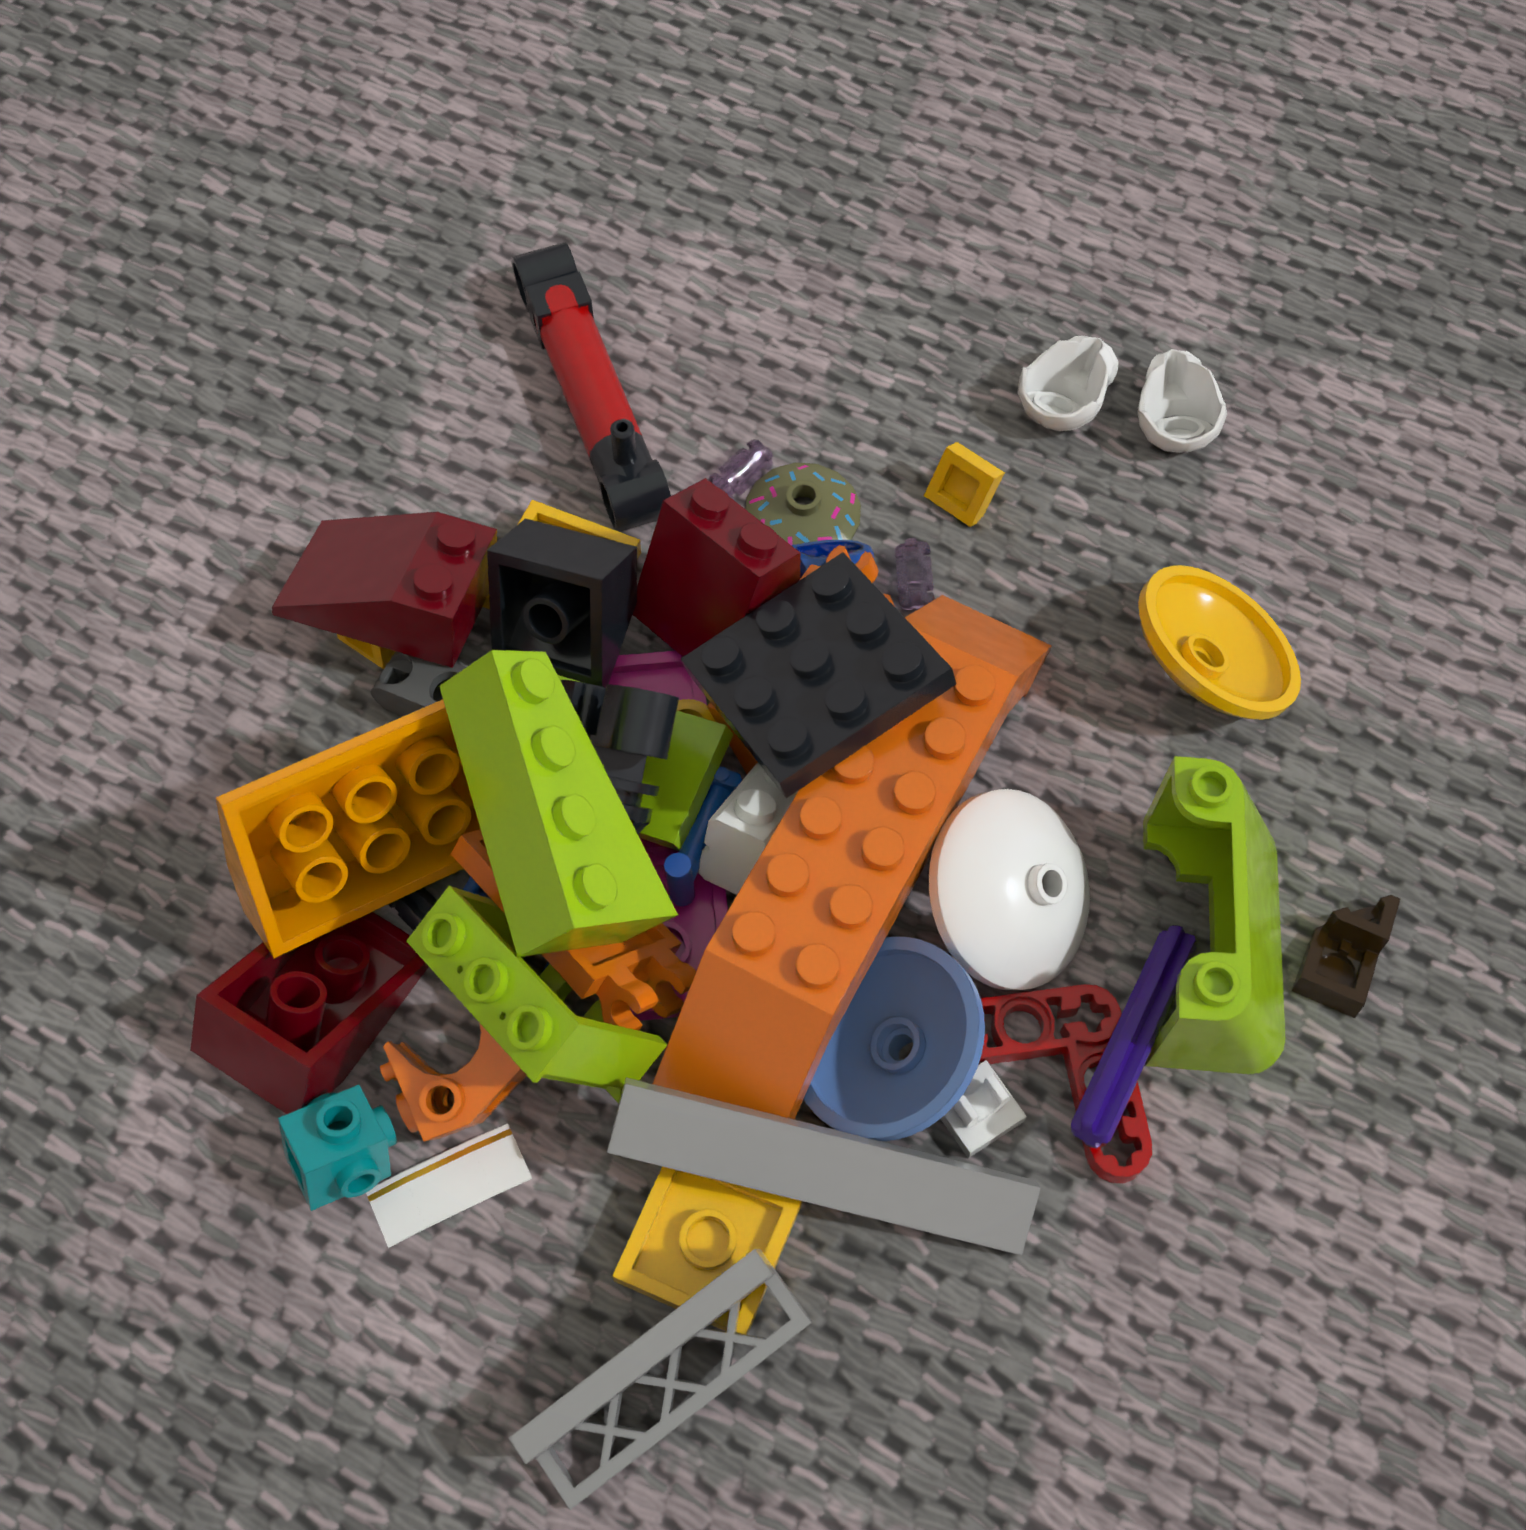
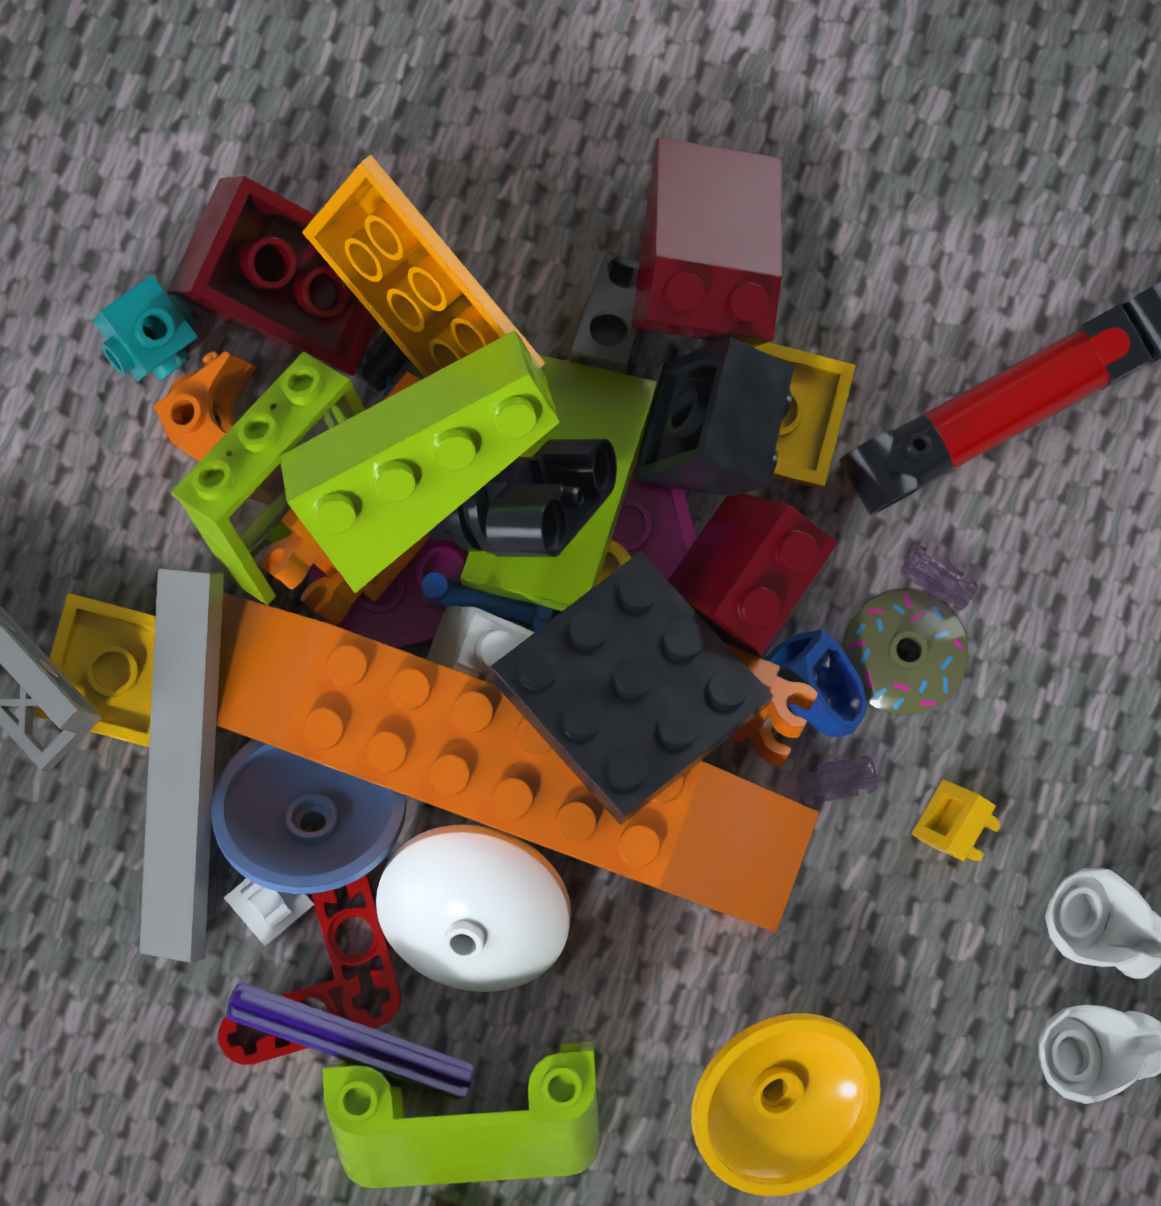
camera: 85 degrees right, 20 degrees up
(448, 1184) = (137, 434): white sticker -> none

